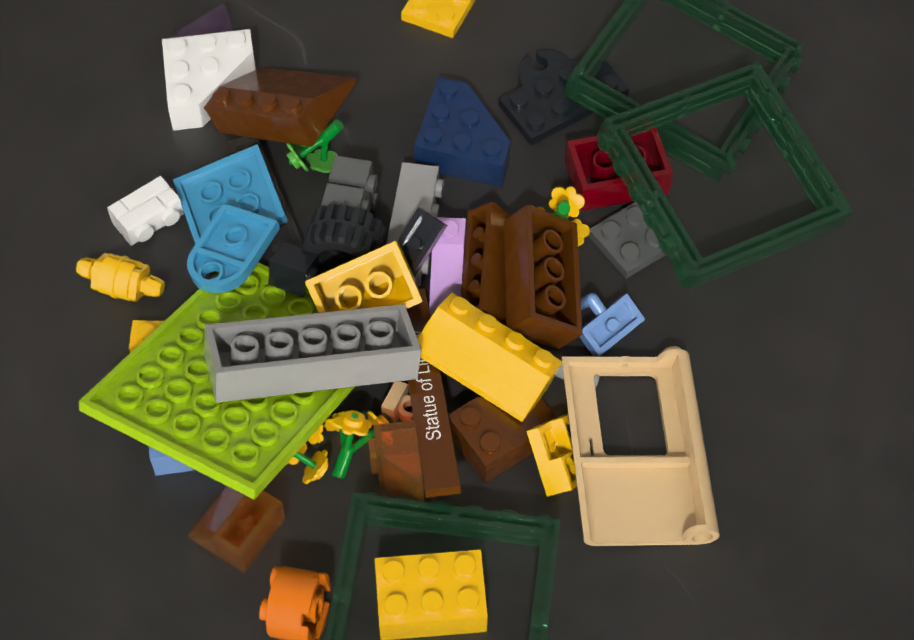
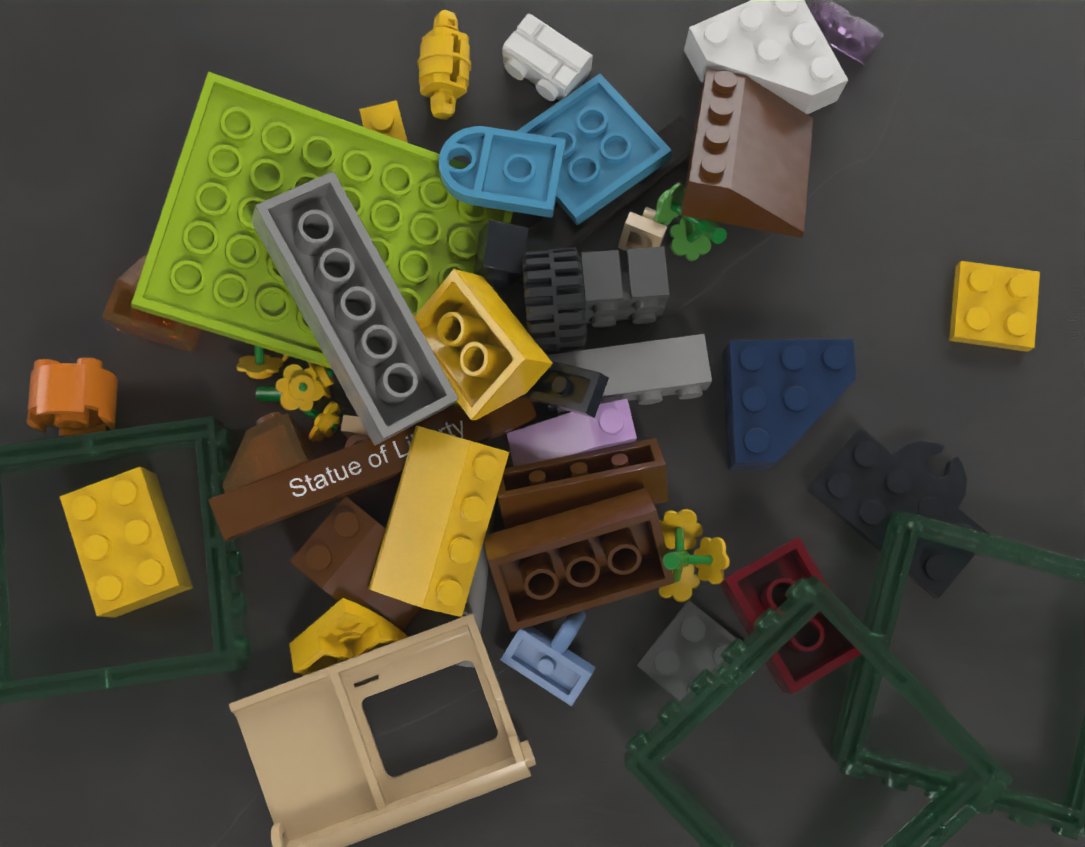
camera: 75 degrees right, 20 degrees up
(310, 185) = (642, 231): none -> tan tile

